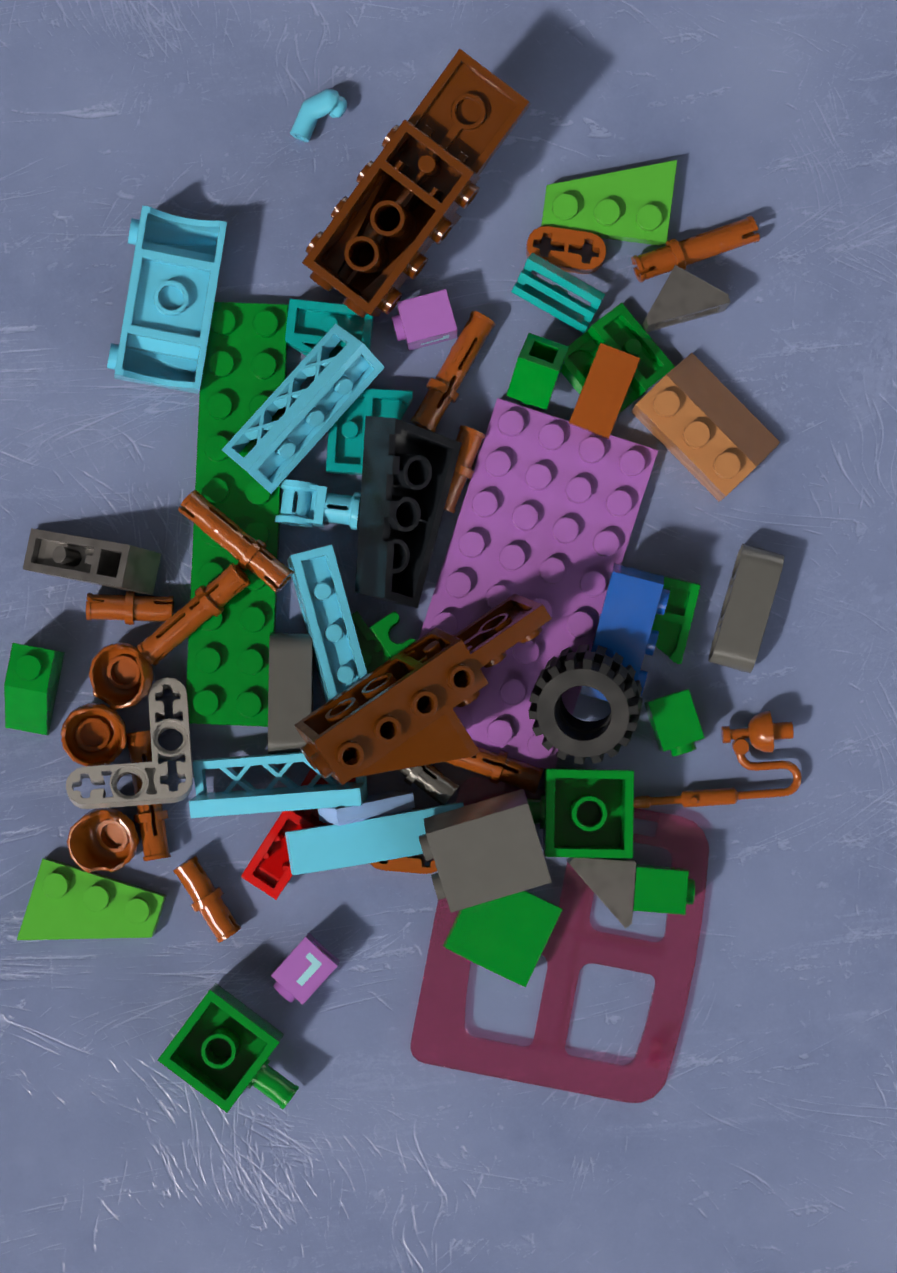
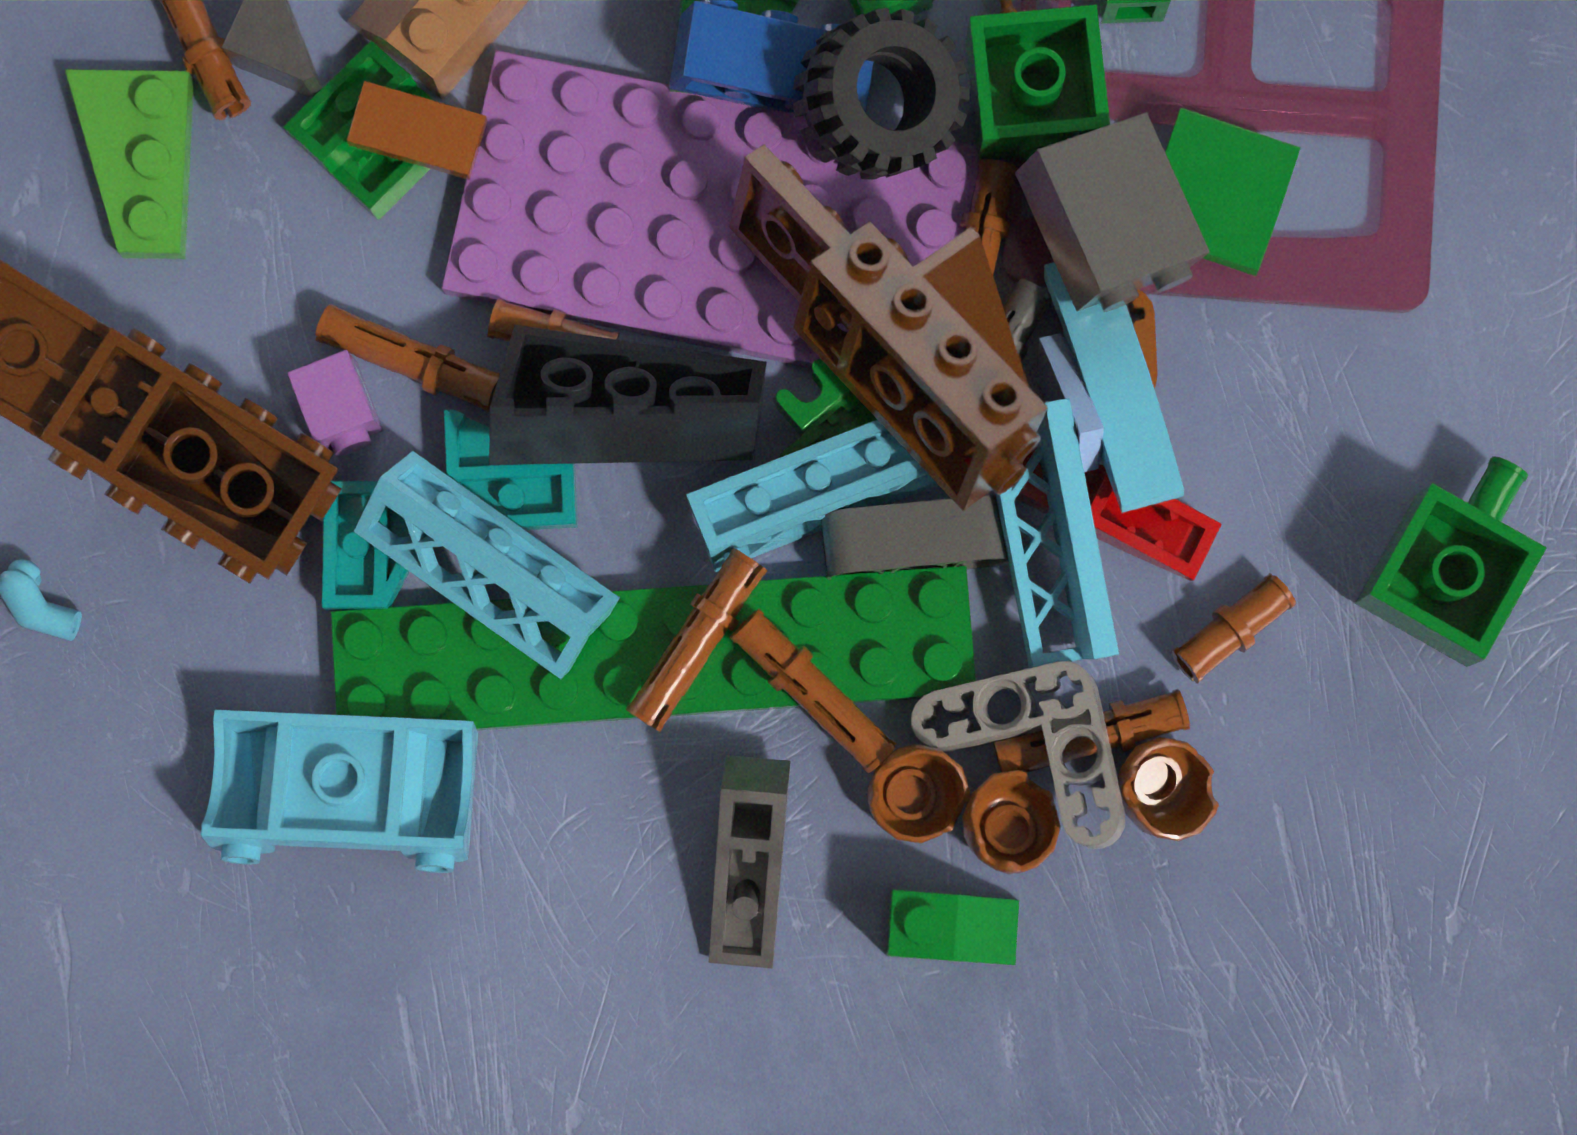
camera: 95 degrees left, 5 degrees down
(87, 906) = (1268, 810): bright green wing -> none
(129, 607) = (812, 794): dark orange pin -> none
(304, 970) = (1319, 471): medium lavender brick -> none
(315, 505) = (630, 536): medium azure connector -> none
(537, 371) = (397, 229): green brick -> none
(554, 298) = (297, 226): teal tile -> none
(572, 240) = (197, 215): dark orange beam -> none
(612, 883) = (1137, 40): flat silver slope -> none

